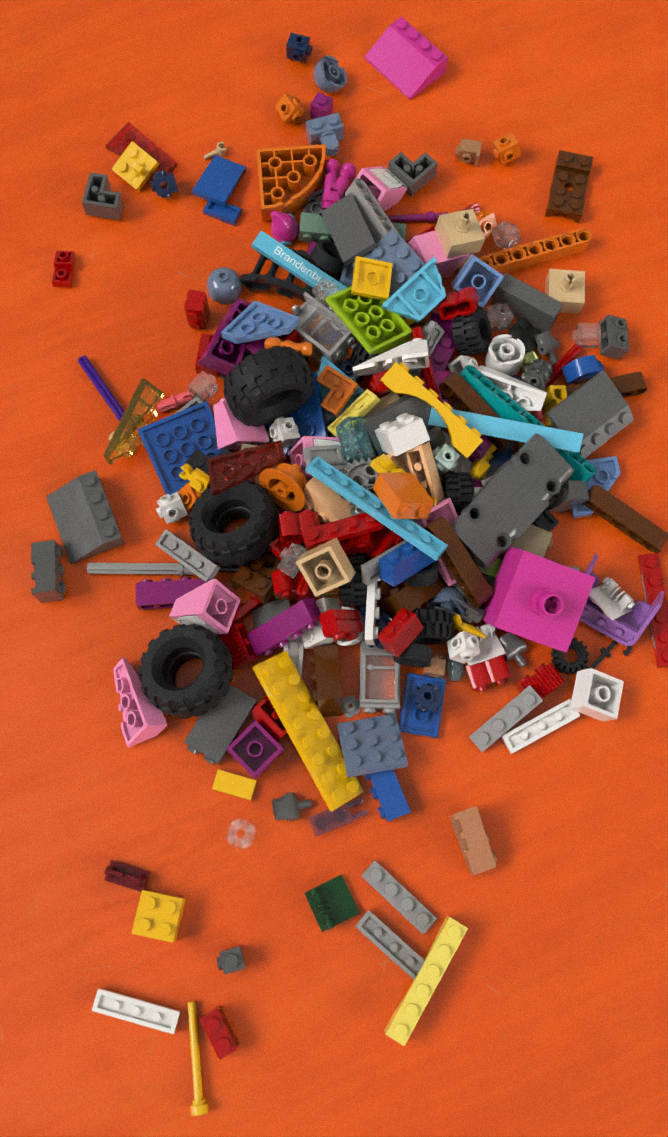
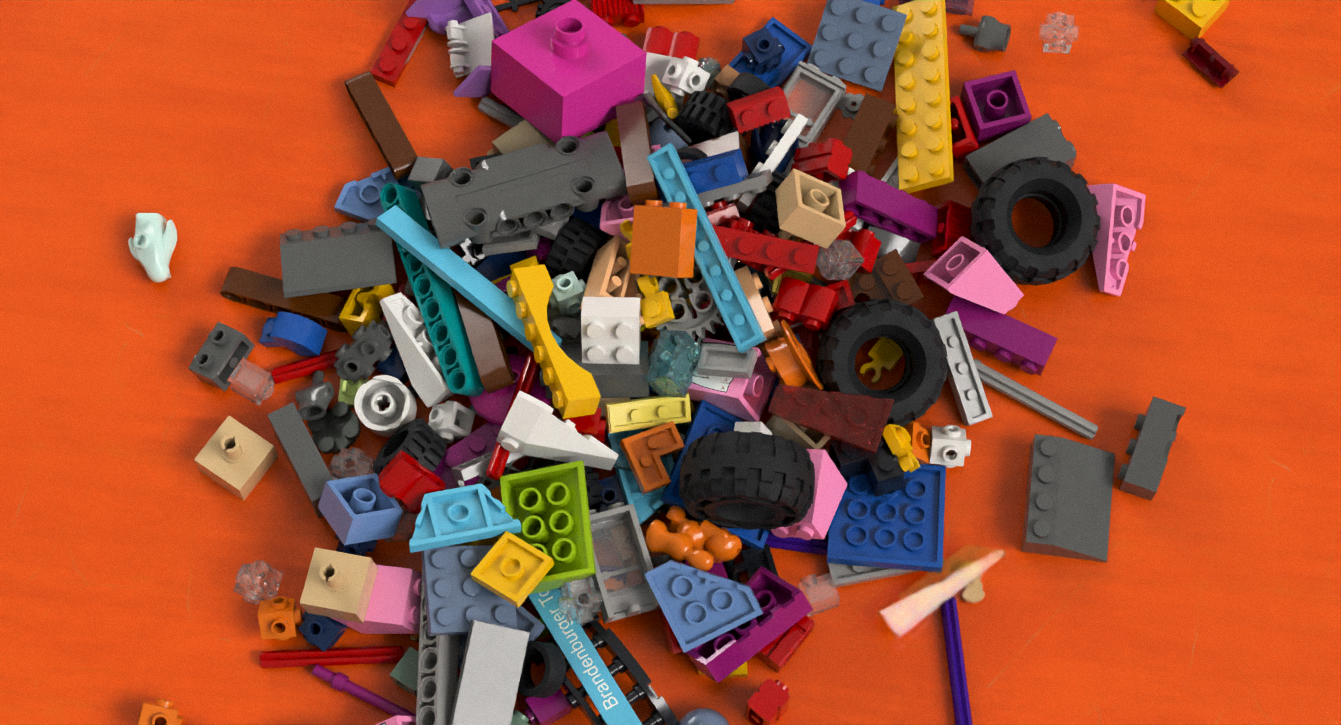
camera: 150 degrees left, 5 degrees down
(173, 401) = (866, 597): coral axle -> none
(234, 784) = (1040, 92): yellow tile -> none
(540, 250) = (225, 531): orange beam -> none
(570, 171) = (130, 592): reddish brown piece -> none

